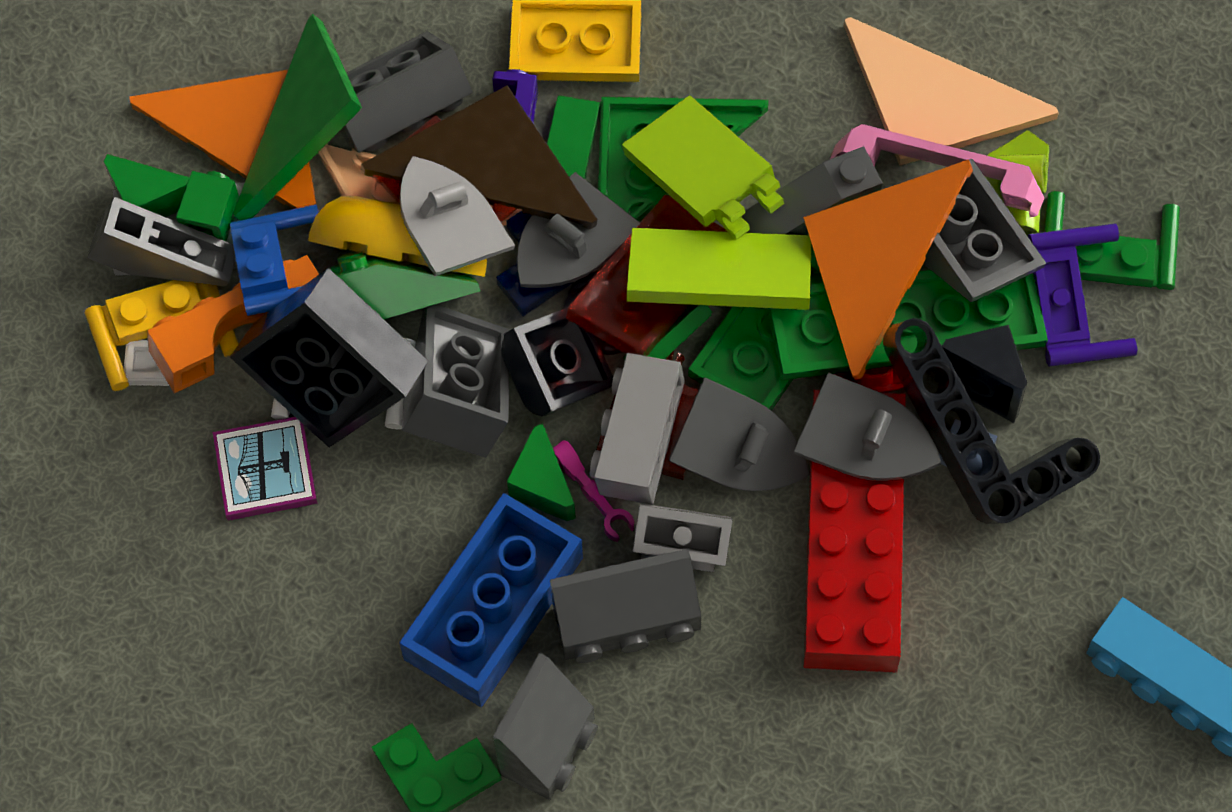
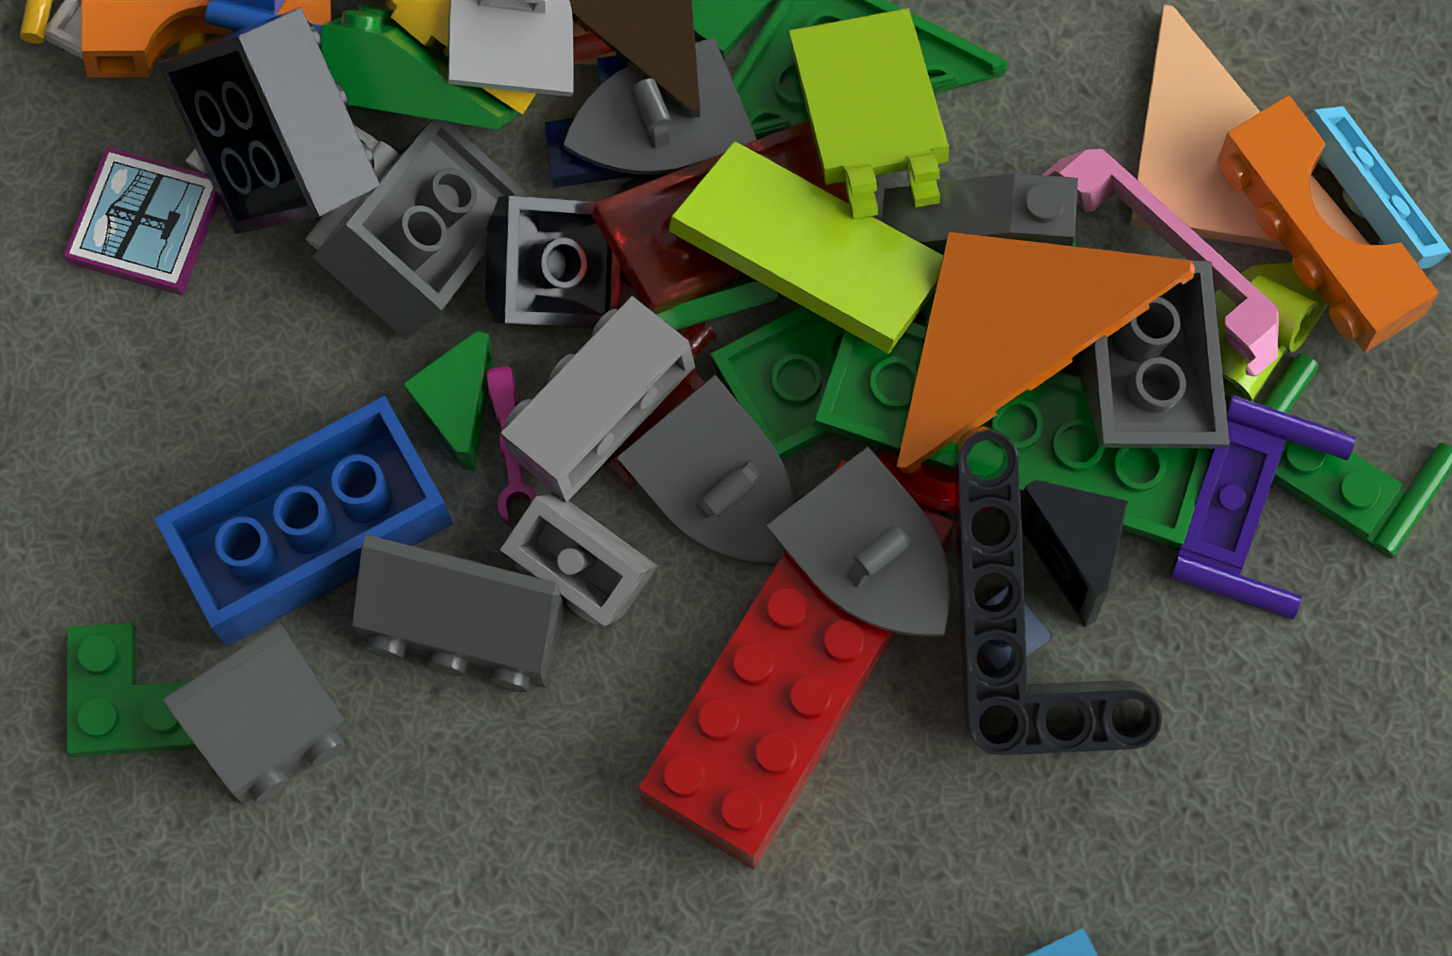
camera: 30 degrees right, 5 degrees up
(1037, 71) = (1373, 189): none -> medium azure plate
(1069, 130) = (1367, 287): none -> orange arch

